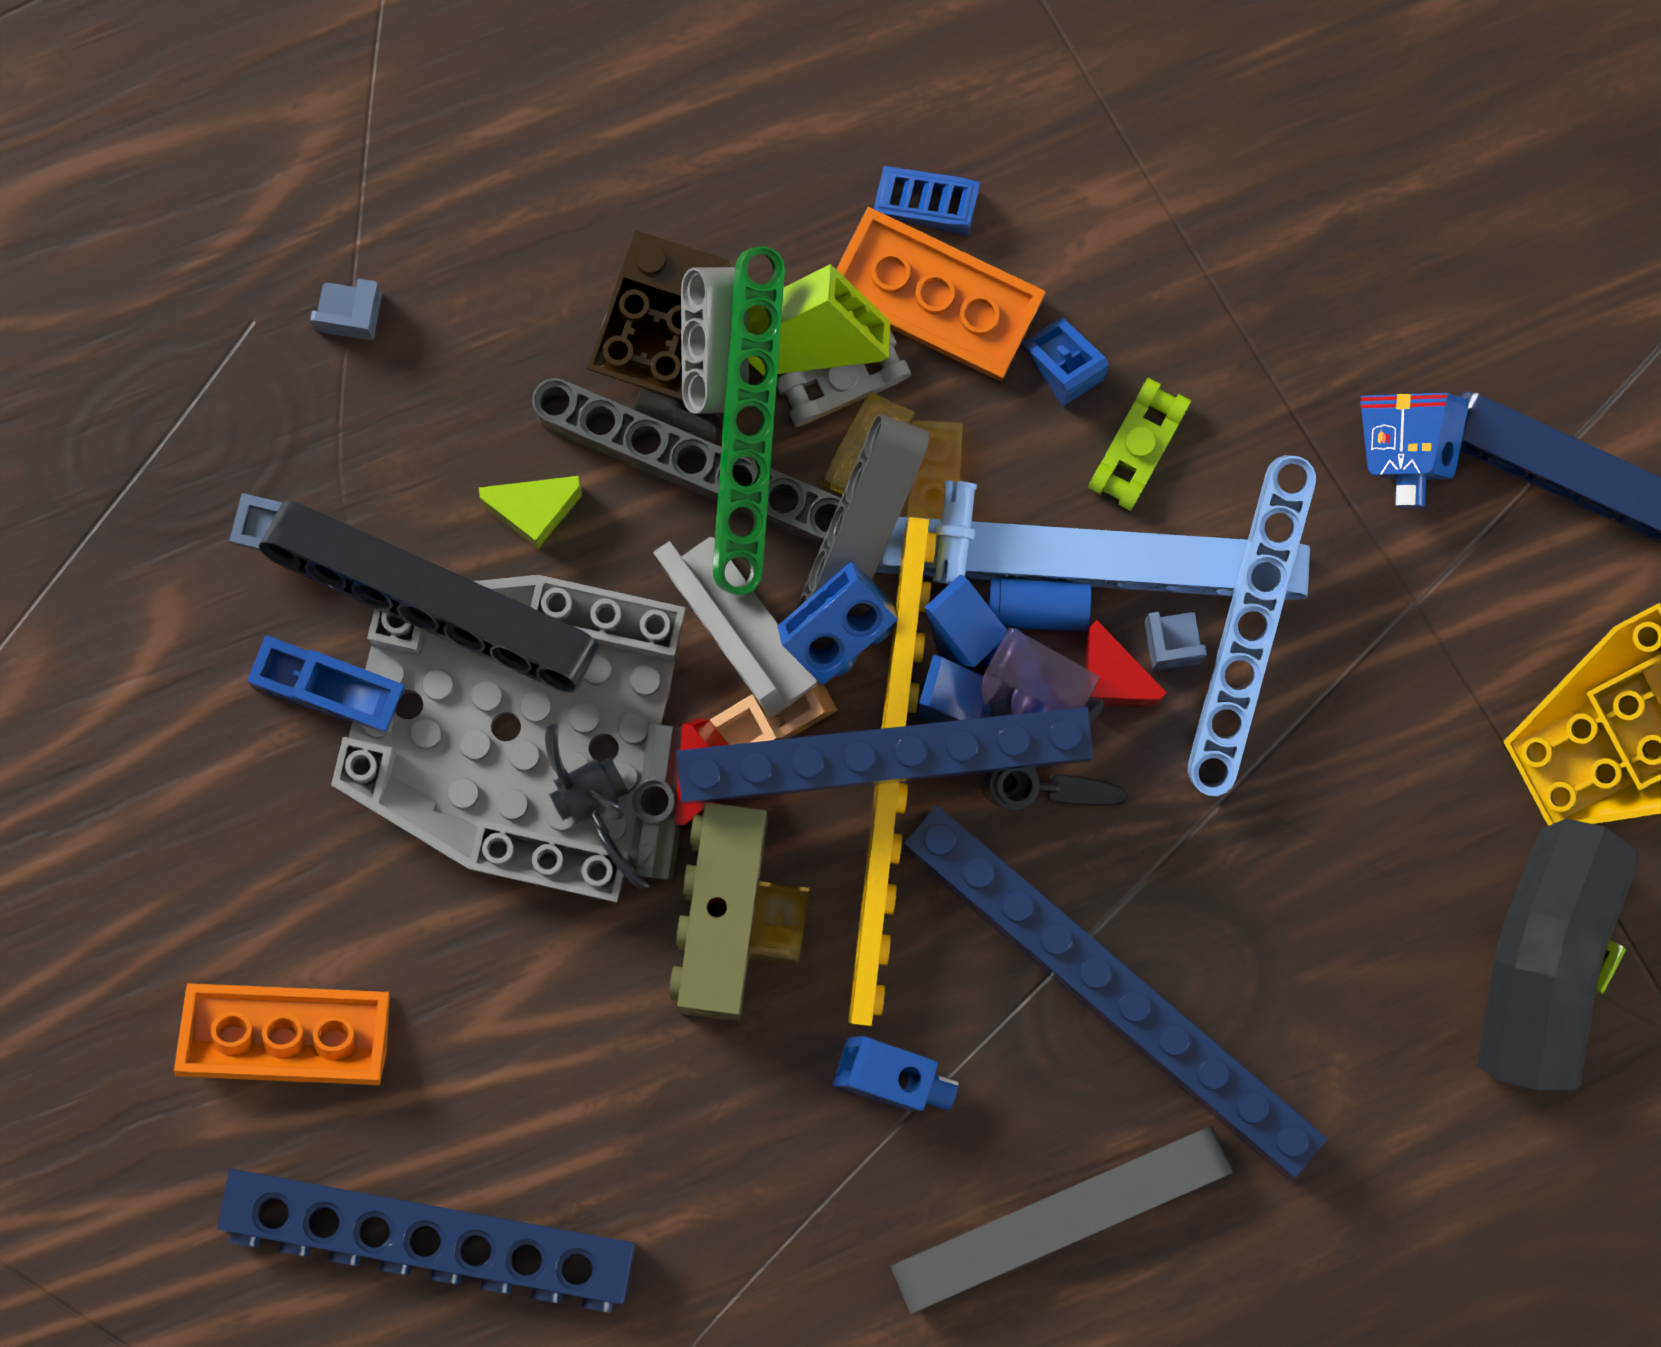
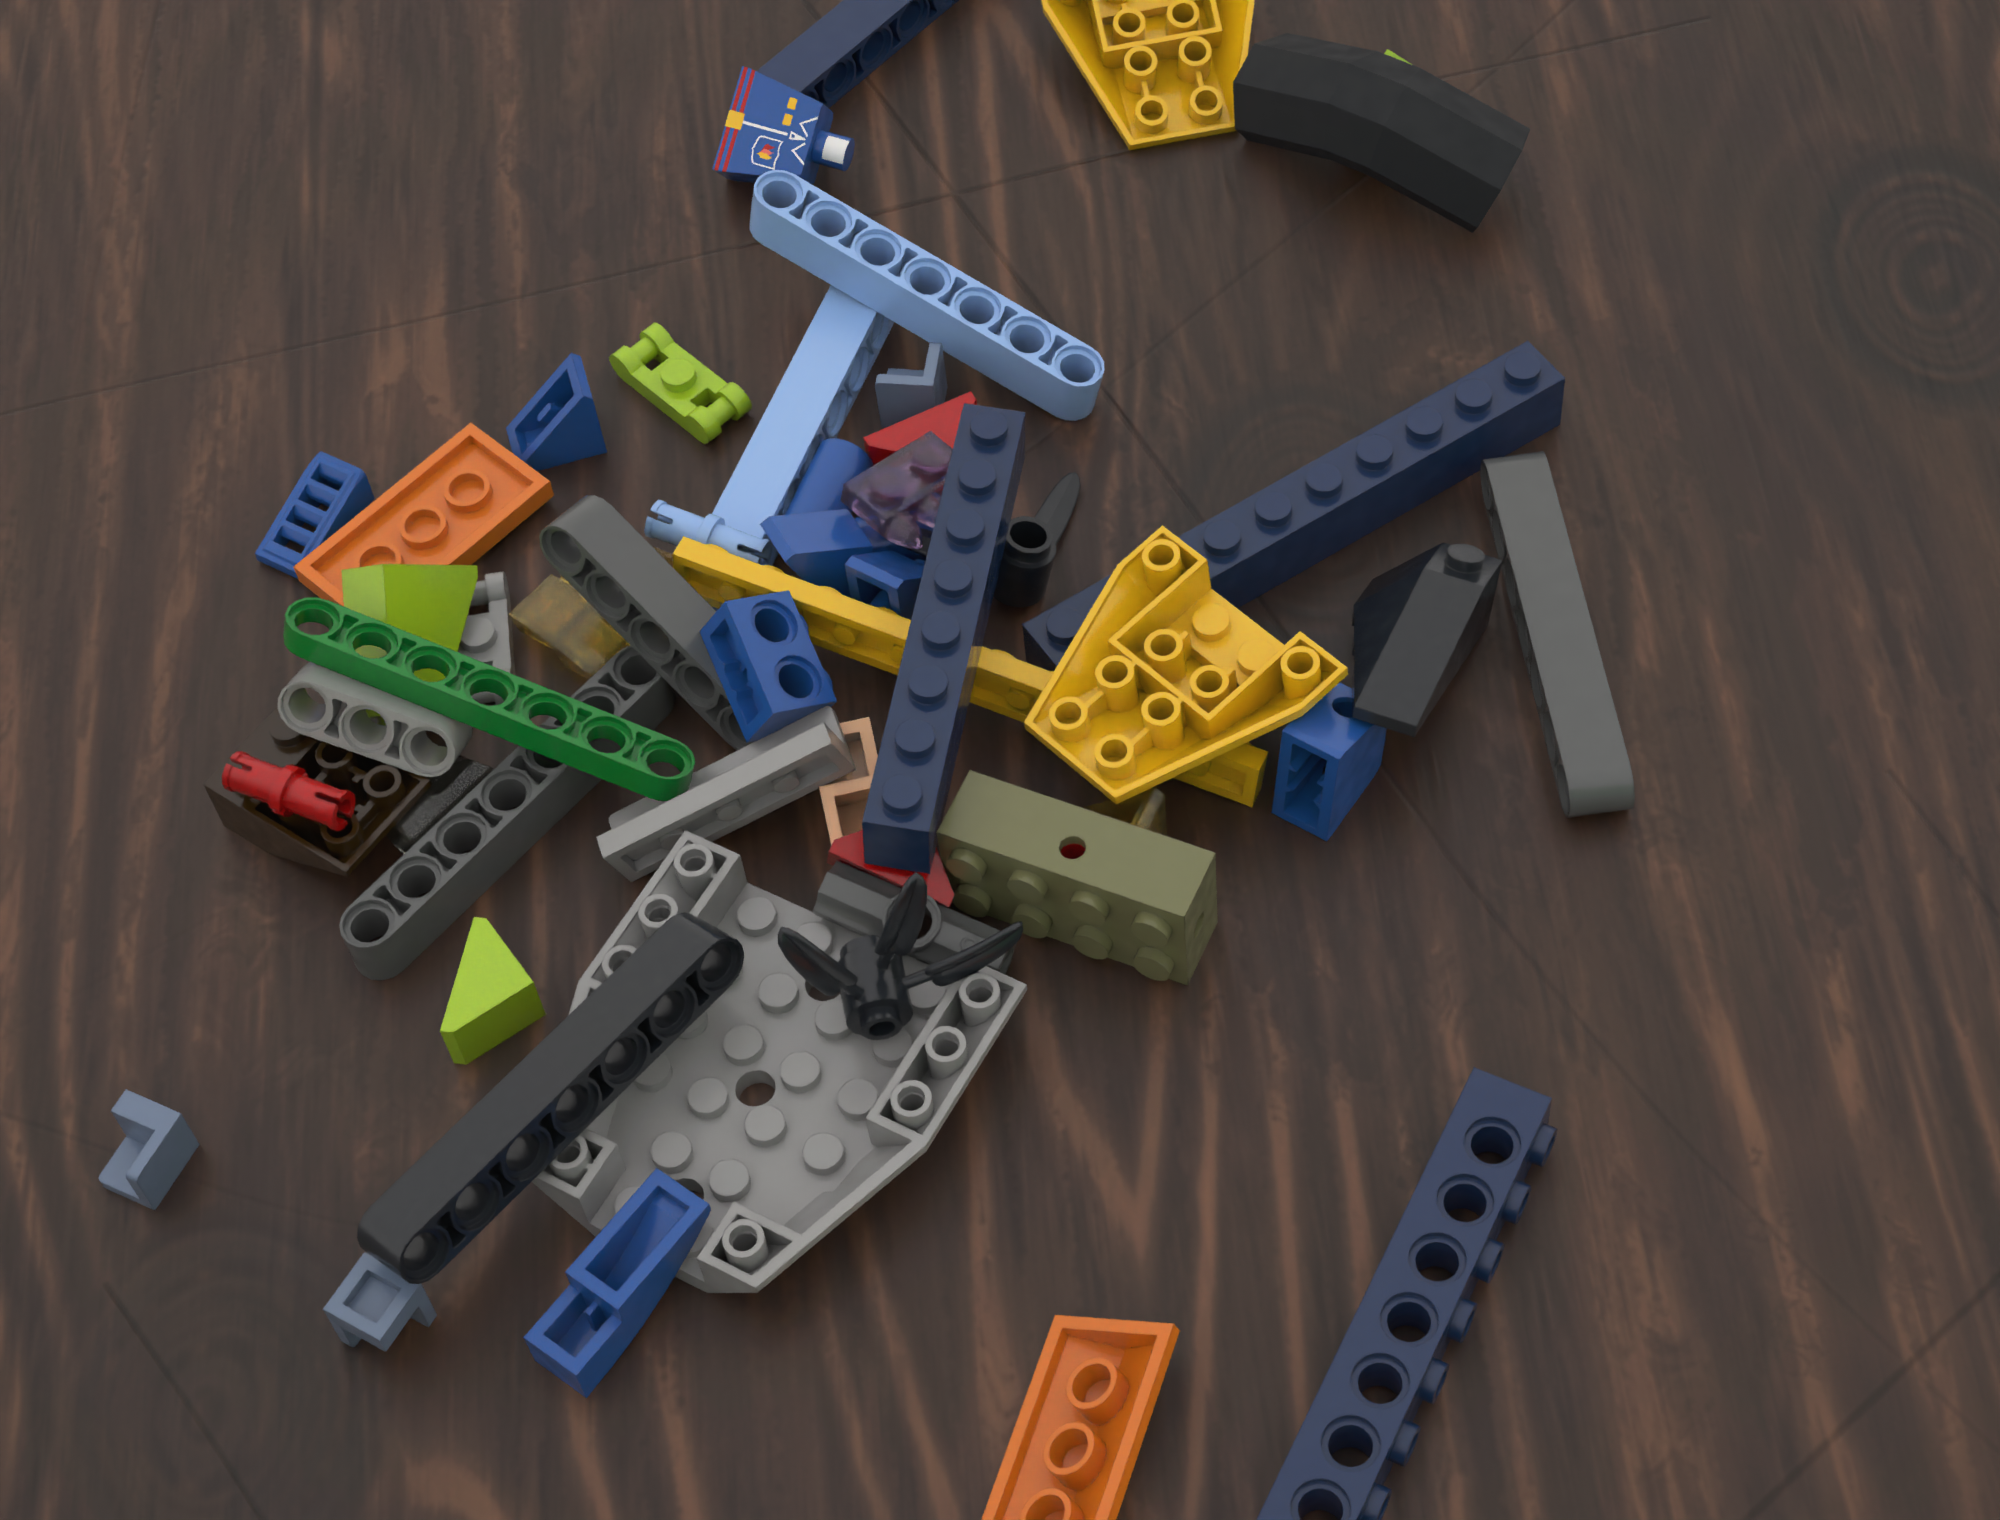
camera: 65 degrees left, 25 degrees down
(630, 303) = (288, 790): none -> red pin
(899, 939) = (1170, 676): none -> yellow wedge
(1011, 1109) = (1417, 632): none -> black wedge

